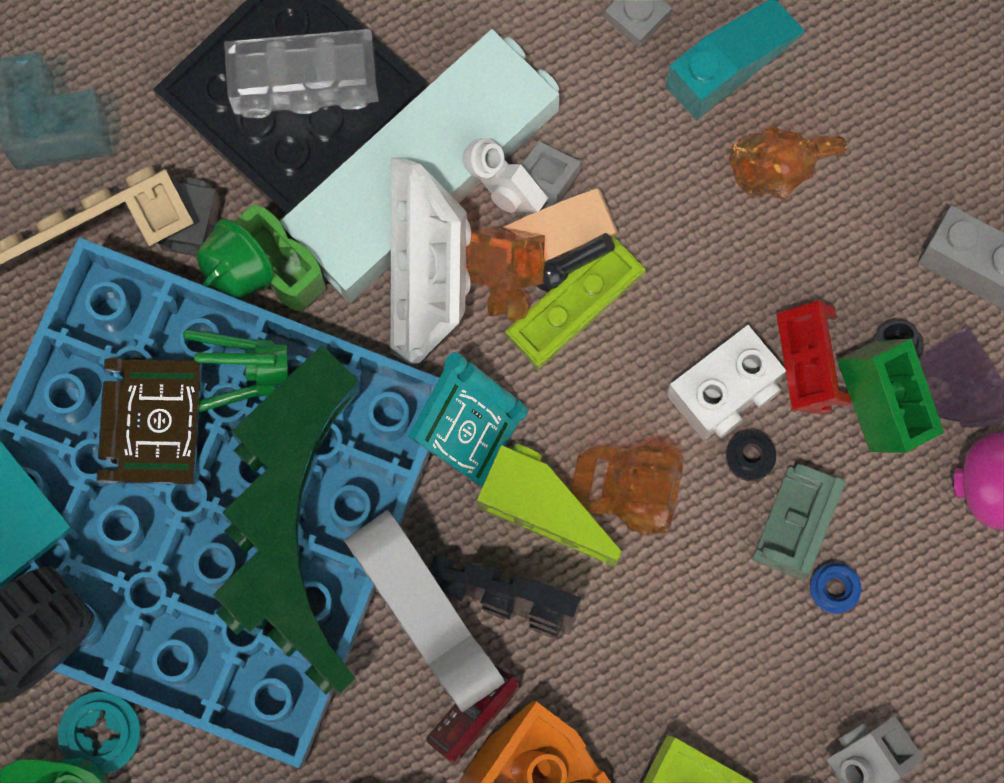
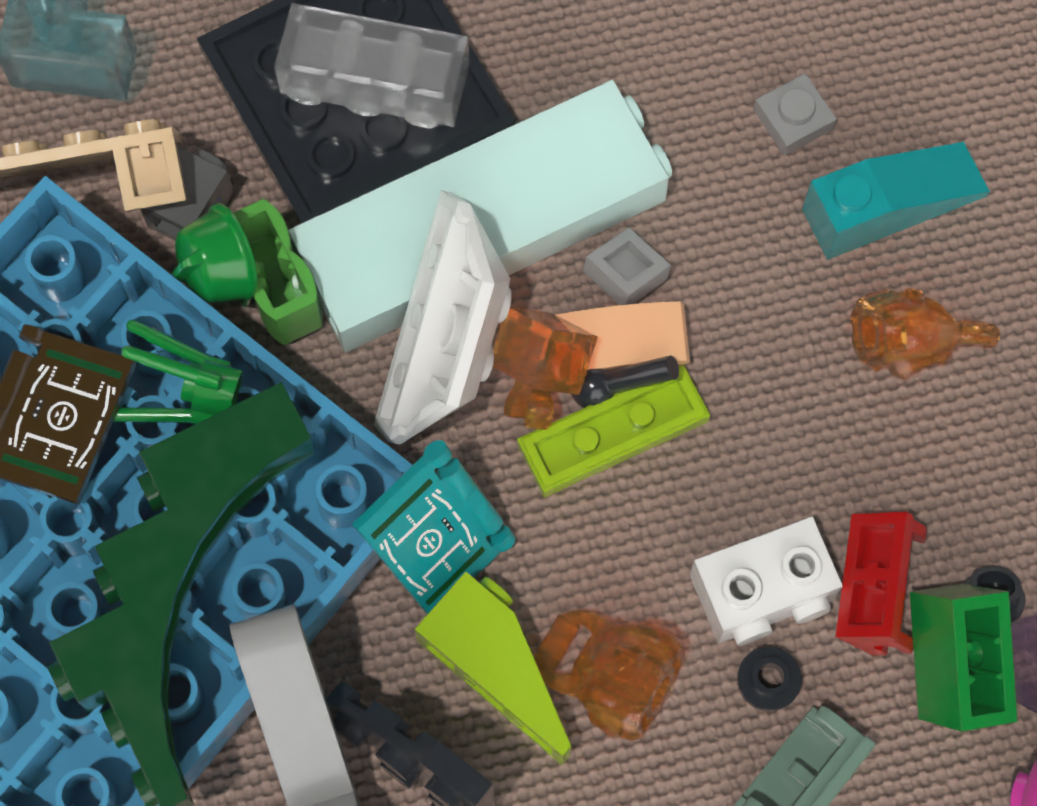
camera: 15 degrees right, 5 degrees down
(509, 183) = (575, 265): white plate -> none

